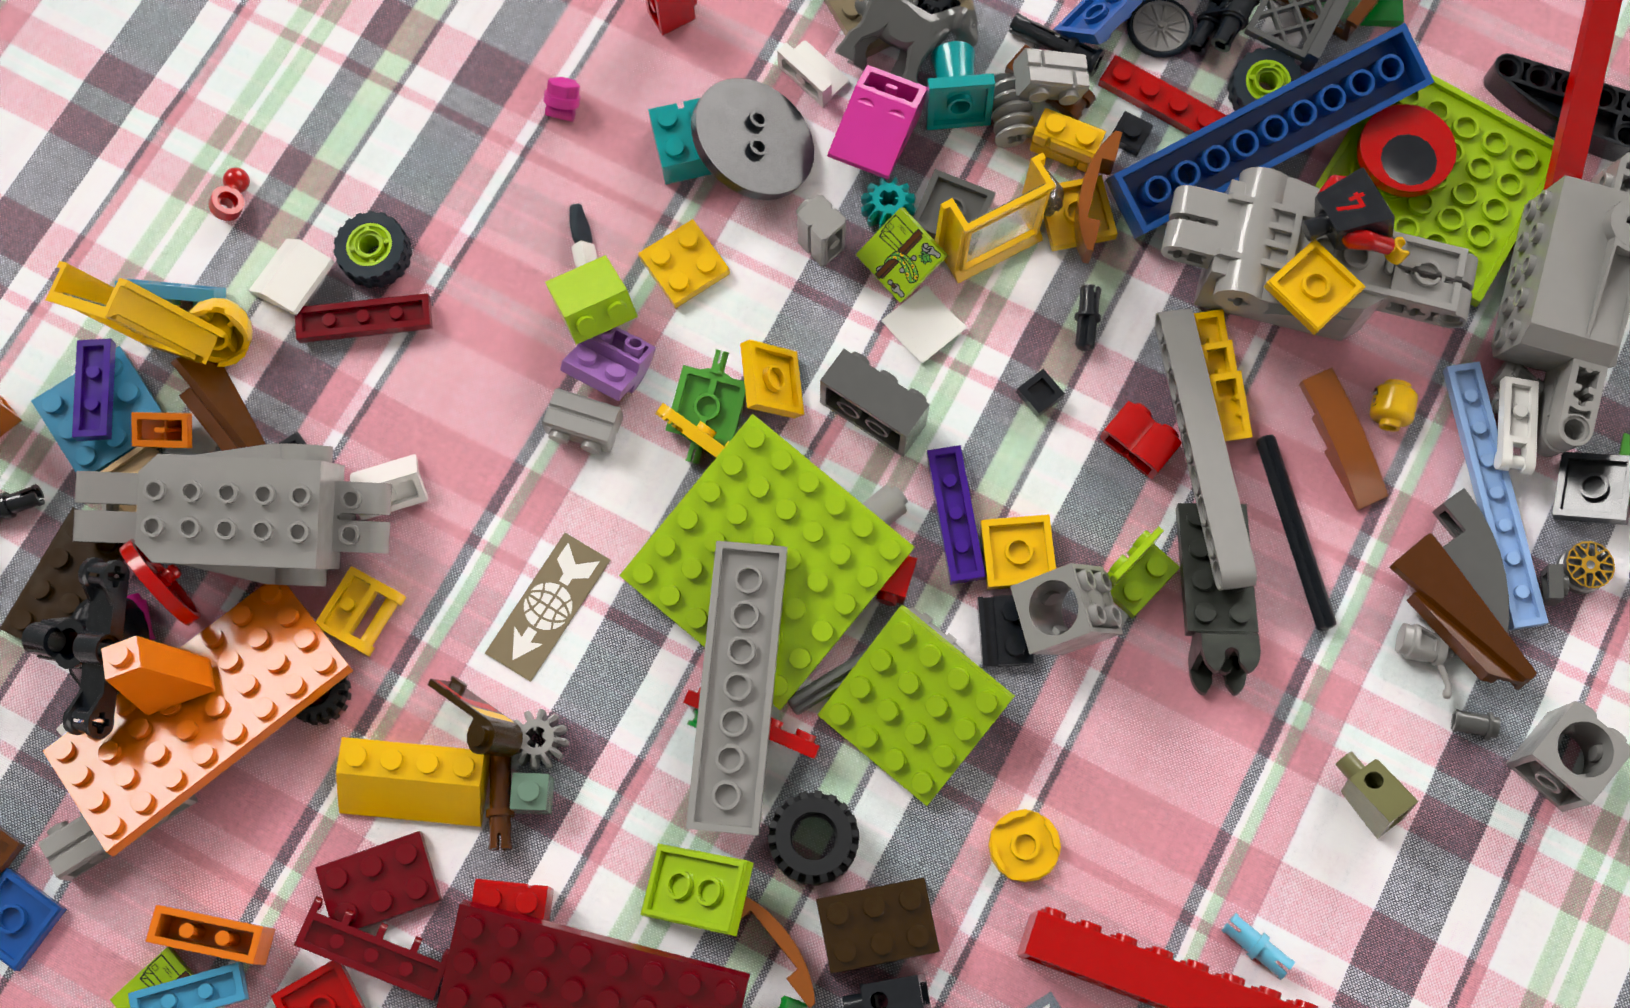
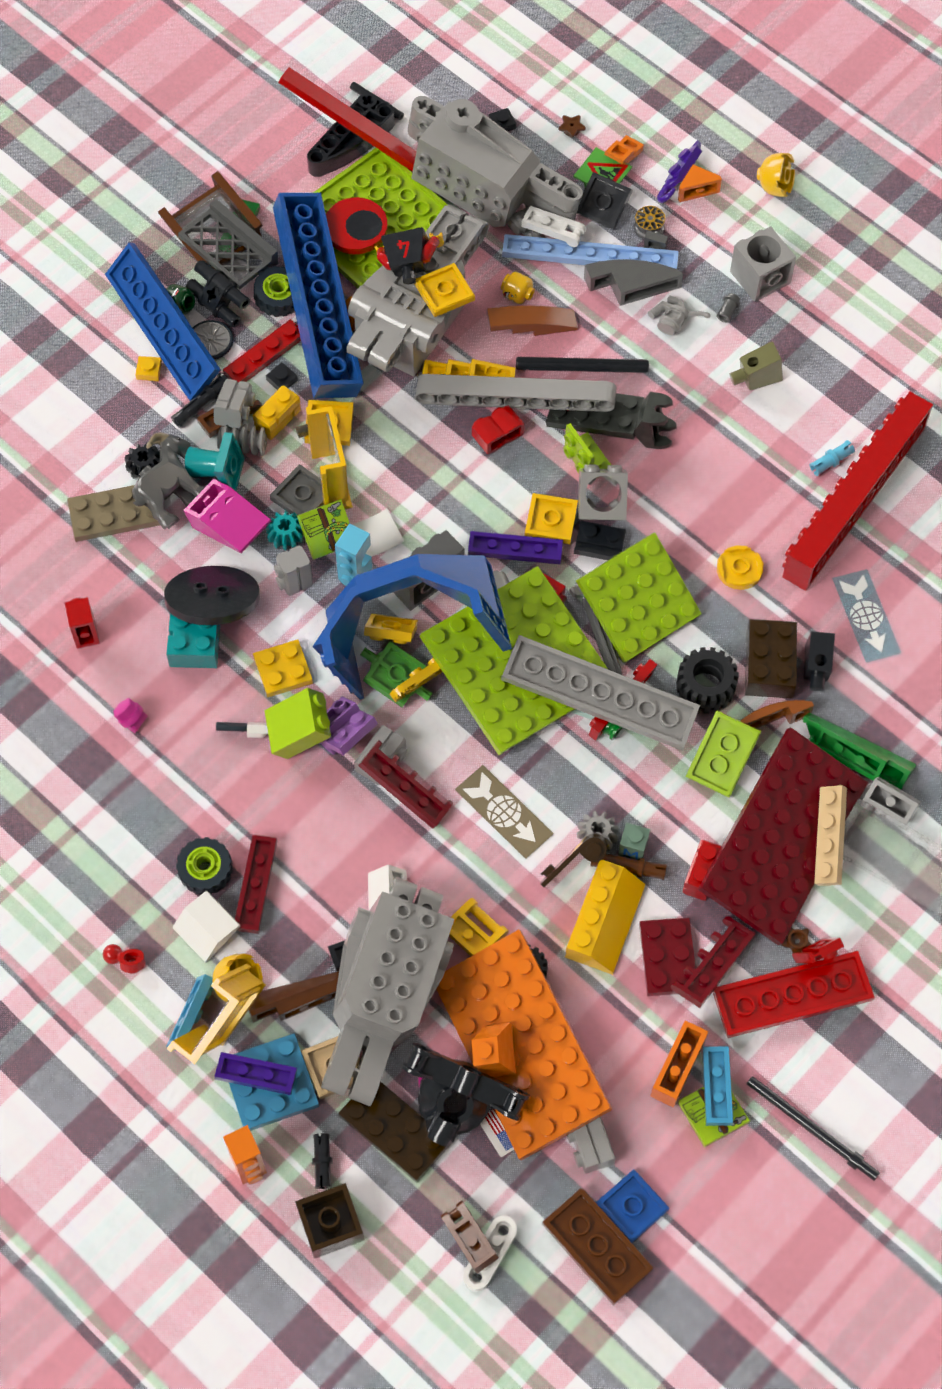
camera: 75 degrees left, 10 degrees down
(161, 429) = (303, 1028): orange slope -> none
(161, 583) = (435, 1037): red piece -> none
(535, 460) = (404, 786): none -> dark red hinge
(811, 71) = (167, 554): white panel -> none
(816, 436) = (458, 576): none -> blue panel
(855, 295) = (351, 553): none -> medium azure arch
(1040, 393) = (447, 477): black plate -> none
(1084, 227) = (350, 416): dark orange slope -> none
(1087, 317) = (404, 437): black axle -> none
(1460, 615) = (661, 292): reddish brown wedge -> none

